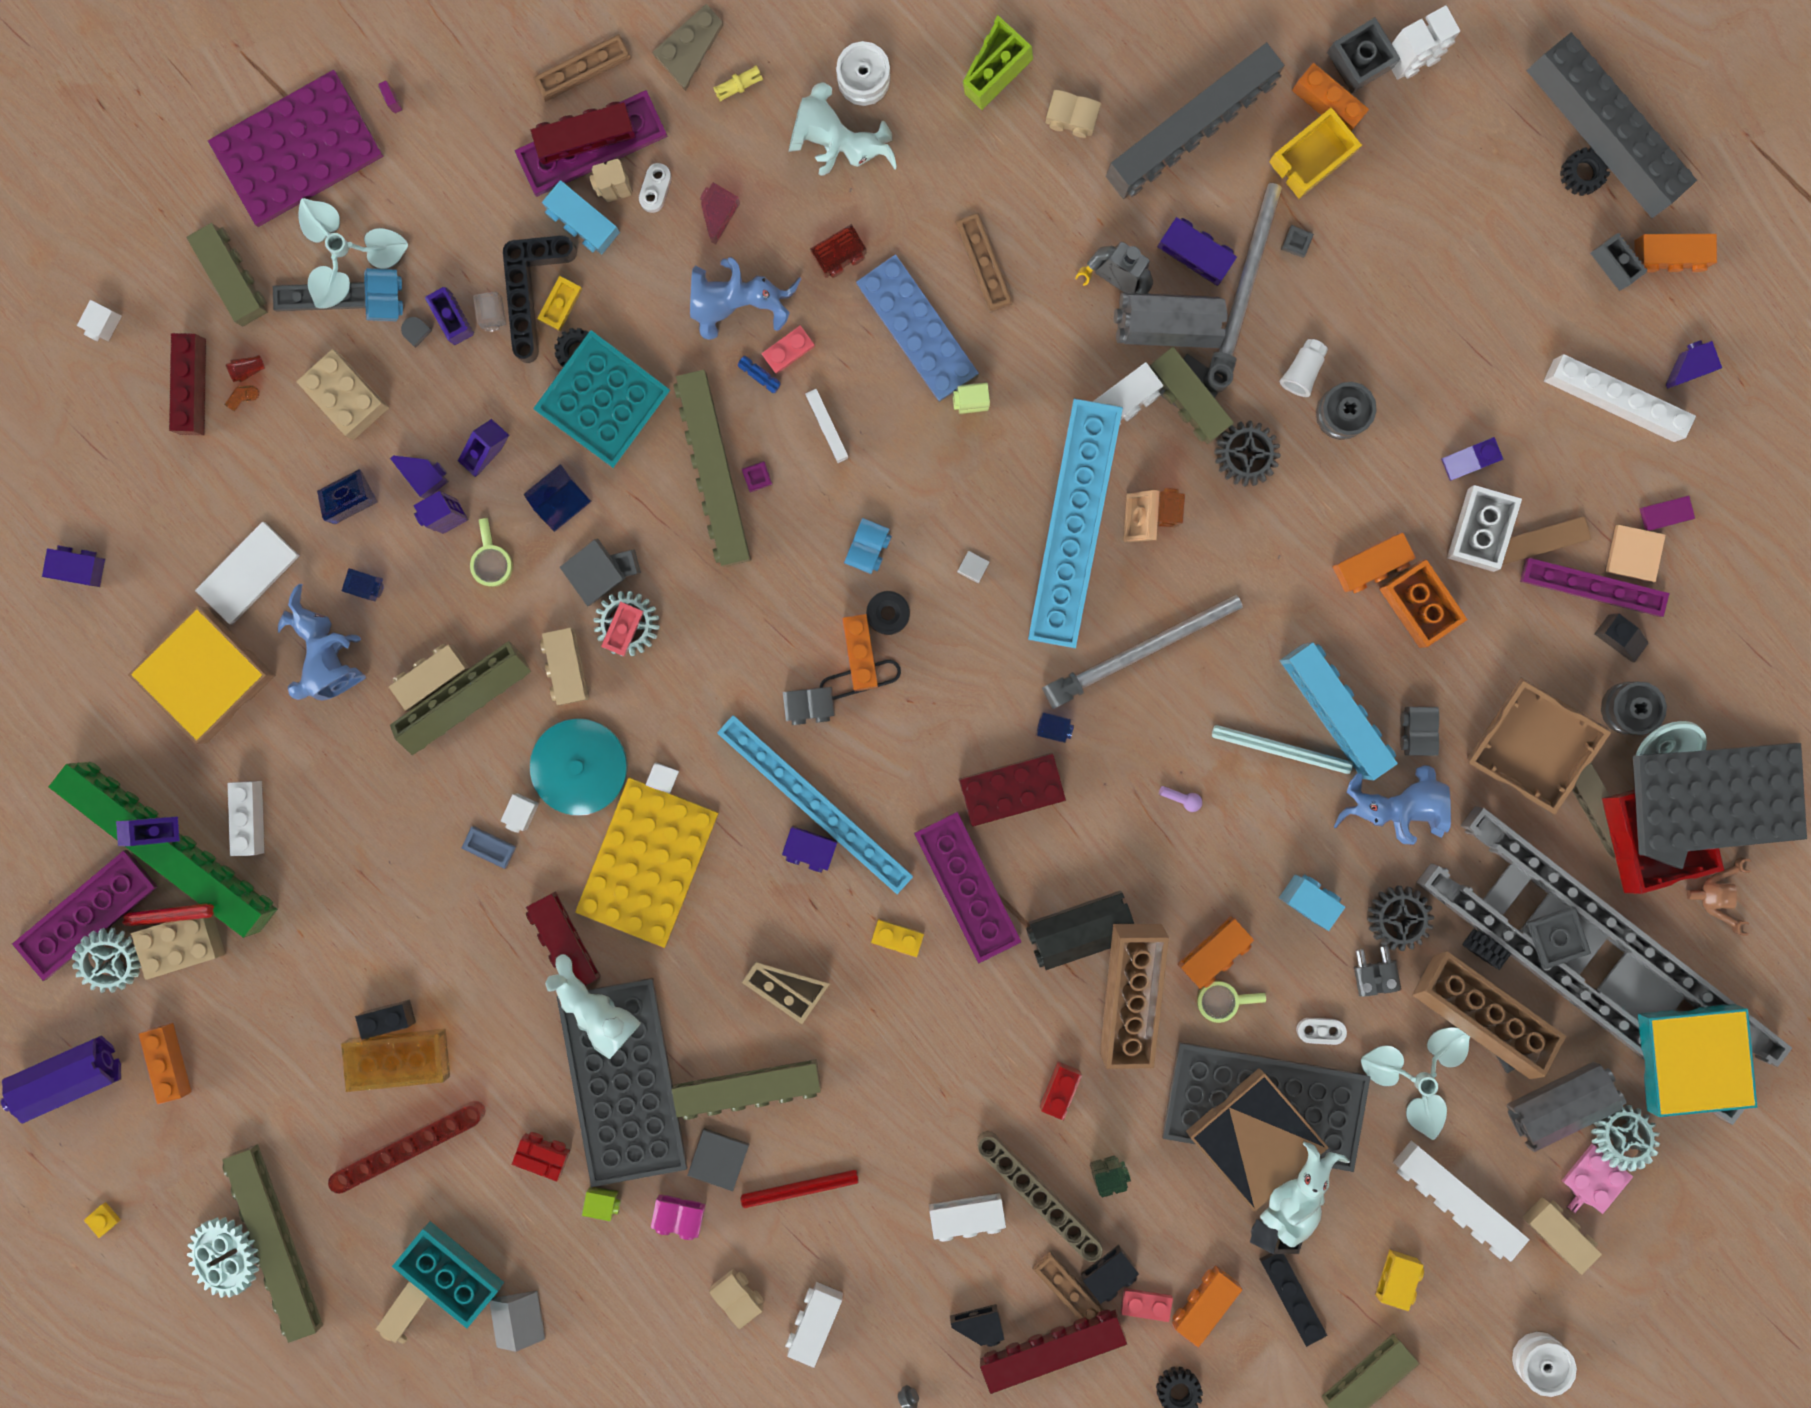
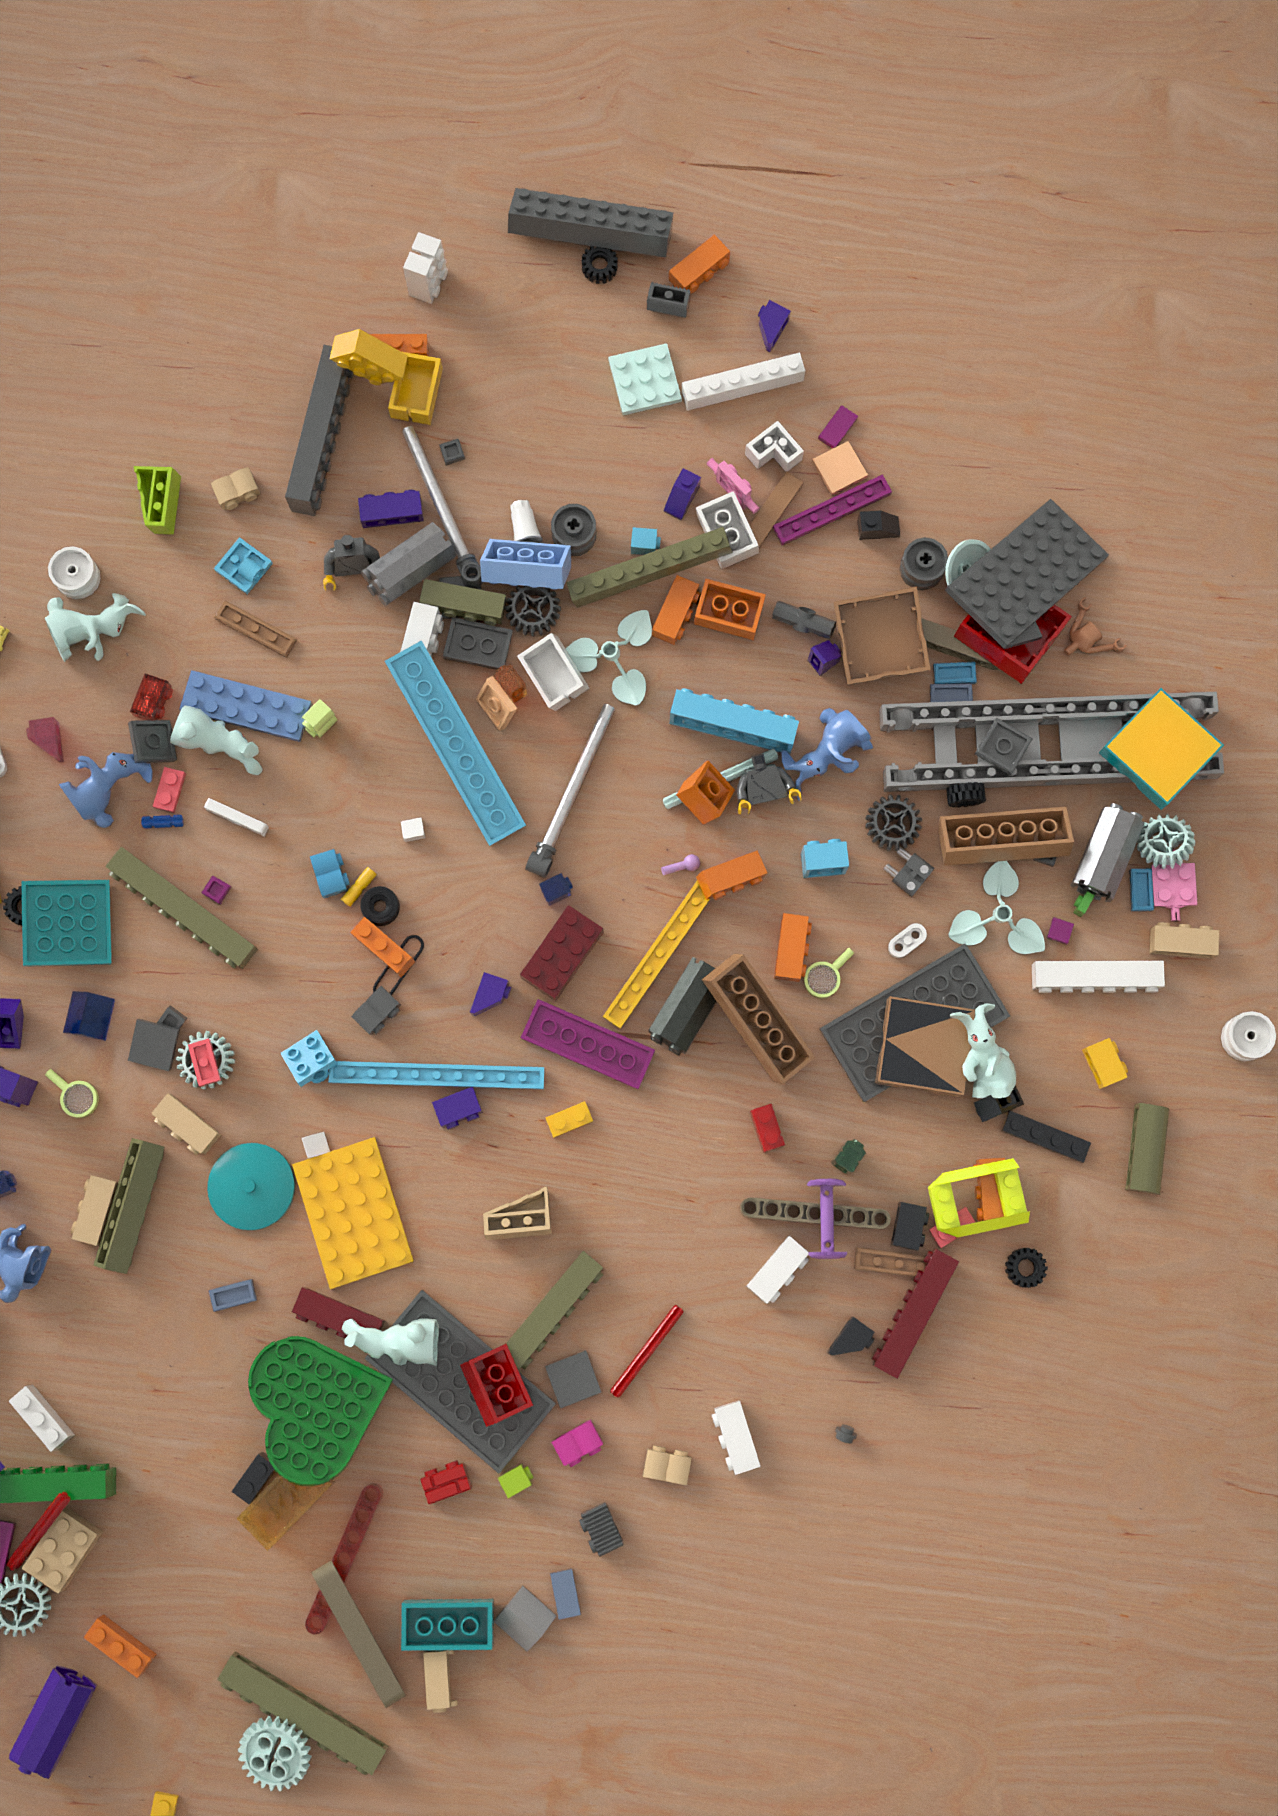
camera: 40 degrees left, 10 degrees down
(367, 1221) = (358, 1634): none -> dark tan beam
(483, 1004) = (315, 1407): none -> green plate
(519, 813) = (235, 1252): white brick -> none
(566, 1328) = (565, 1594): none -> sand blue tile
(639, 1303) = (601, 1529): none -> dark grey brick
(647, 1116) = (496, 1385): none -> red slope
(716, 699) = (309, 1059): none -> medium azure plate
(808, 293) = (152, 741): none -> dark grey tile
(856, 321) = (198, 730): none -> light aqua animal
(879, 580) = (357, 888): none -> yellow piece
(920, 772) = (490, 993): none -> dark purple slope
(1020, 193) = (243, 566): none -> medium azure plate
(1045, 1214) = (827, 1218): none -> medium lavender hose
(1097, 860) = (656, 957): none -> yellow plate
(1170, 445) = (477, 643): none -> dark grey plate
(1216, 529) = (553, 672): none -> white piece
(1218, 848) = (732, 875): none -> orange brick
(1219, 1325) = (1009, 1193): none -> neon yellow wedge
(1256, 532) = (631, 685): none -> light aqua plant
(1258, 754) = (706, 793): none -> orange slope
(1276, 408) = (525, 563): none -> light blue brick
(1297, 90) = (368, 357): none -> yellow piece
(1316, 789) = (764, 784): none -> dark grey torso
(1363, 55) = (395, 305): dark grey brick -> none
(1385, 506) = (649, 567): none -> olive brick
(1400, 475) = (644, 541): none -> medium azure brick
(1421, 731) = (800, 691): dark grey brick -> none
(1462, 1133) = (1060, 930): none -> magenta tile
(1469, 718) = (824, 656): none -> dark purple slope
(1481, 669) = (804, 619): none -> dark grey piece
(1503, 1129) = (1082, 903): none -> bright green plate
(1526, 486) = (730, 482): none -> bright pink plate
(1531, 319) = (644, 379): none -> light aqua plate
(1551, 845) = (950, 692): none -> sand blue tile
(1565, 1158) = (1141, 890): none -> dark azure tile
(1572, 829) = (955, 673): none -> dark azure tile
(1599, 486) = (775, 444): none -> white brick

